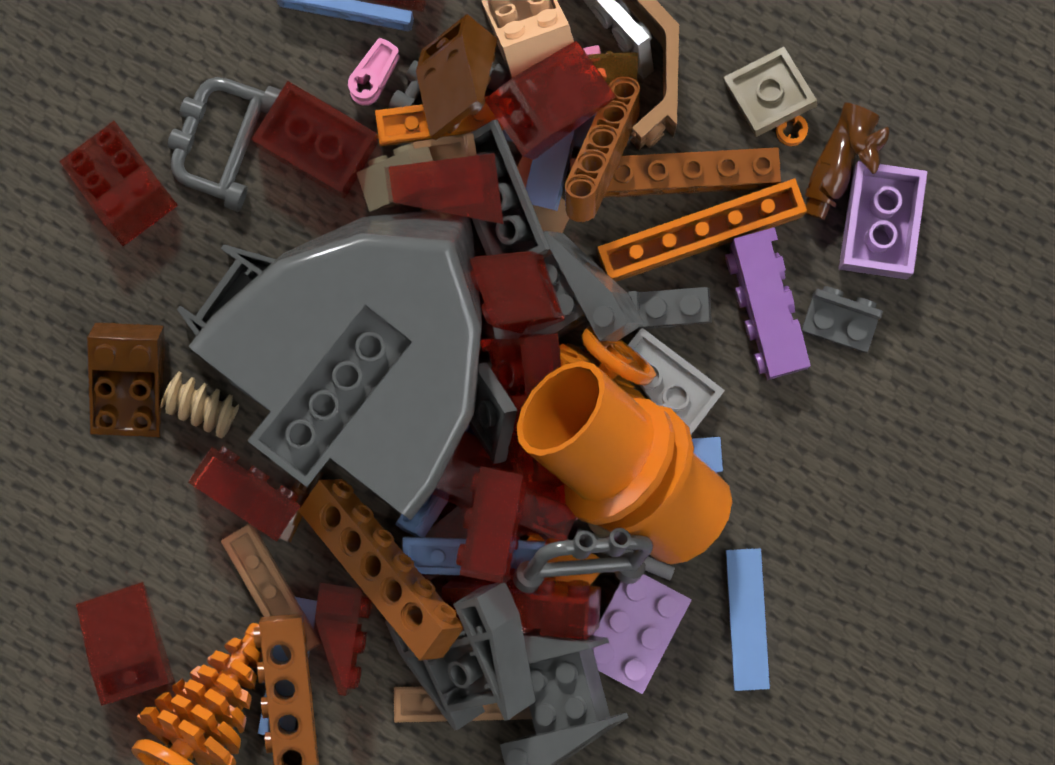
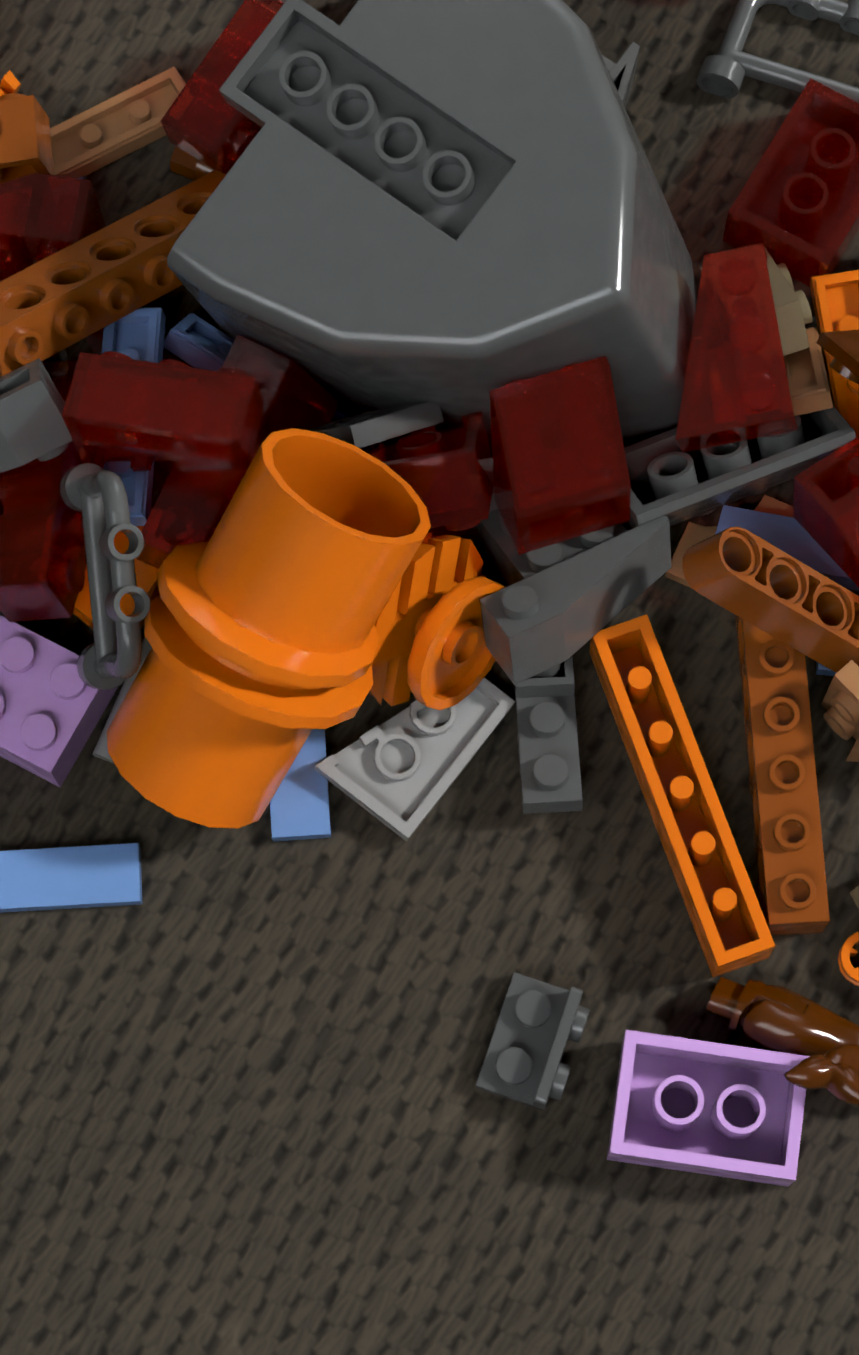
camera: 90 degrees right, 10 degrees down
(767, 304) = (557, 909): medium lavender wedge -> none

